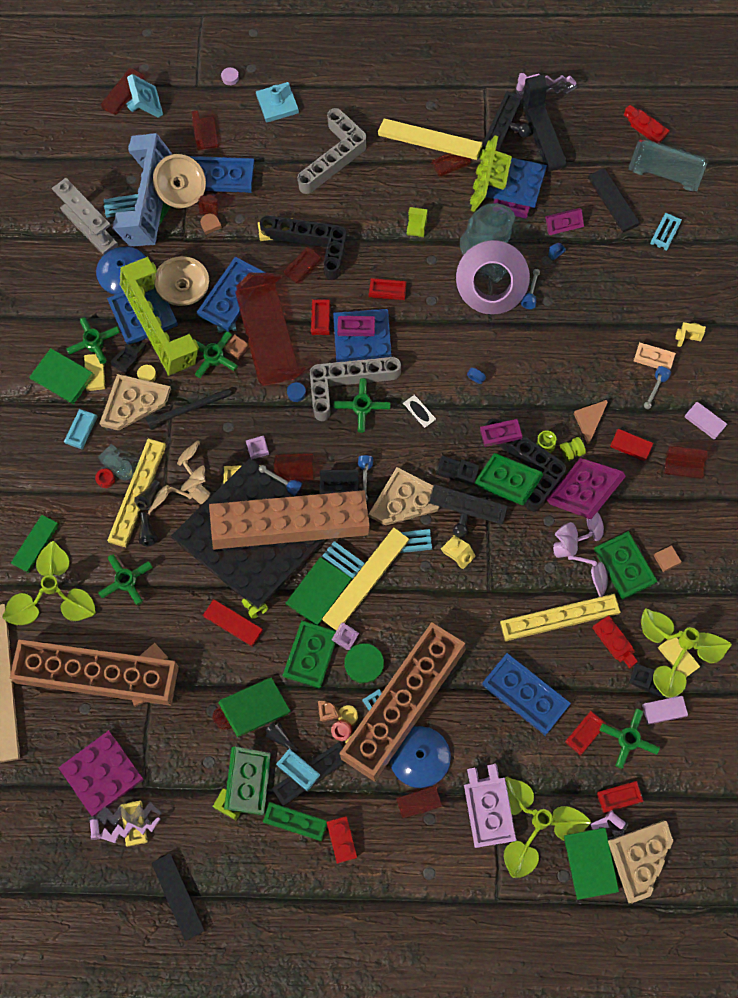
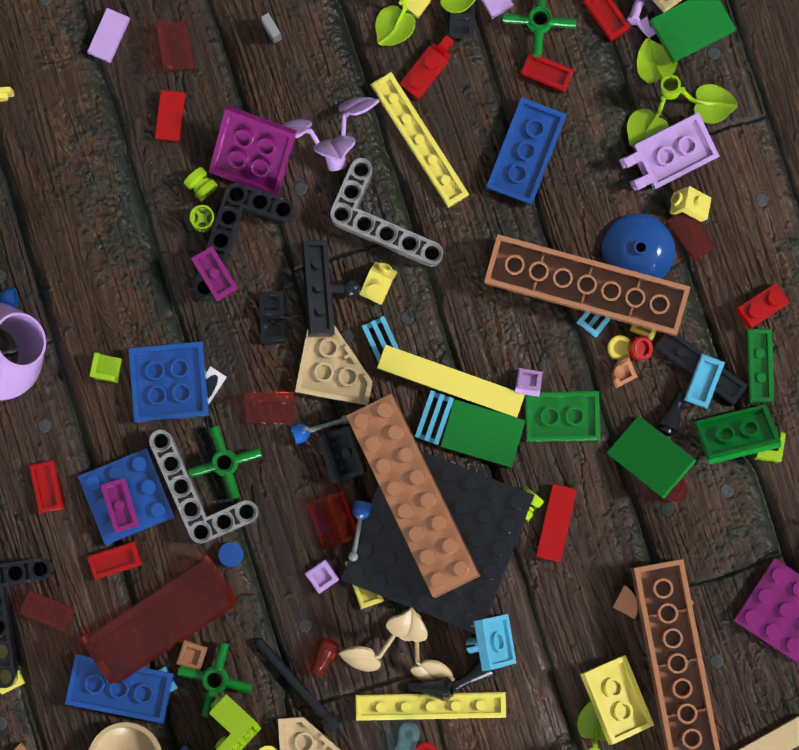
camera: 115 degrees left, 15 degrees up
(86, 621) = (617, 699): none -> light yellow plate
(120, 574) = (557, 681): green bar -> none
(162, 546) = (493, 642): none -> medium azure tile
(202, 431) = (324, 655): none -> clear red cone
(364, 663) = (552, 349): green tile -> none
(391, 449) = (270, 407): none -> clear red panel
(433, 386) = (168, 382): none -> blue plate
(443, 809) = (691, 203): none -> light yellow bracket
(457, 347) = (106, 368): none -> lime panel
(476, 375) = (138, 332): blue tile -> none
(503, 562) = (351, 206): none -> light grey beam
(508, 479) = (267, 249): green tile -> none
(589, 418) = (151, 176): nougat tile -> none
(625, 565) = (329, 82): green tile -> none
(653, 356) = (41, 119): light nougat plate -> none
(662, 375) = (65, 103): hinge -> none
(667, 558) = (305, 35): nougat tile -> none
(679, 533) = (271, 28): none -> light grey tile

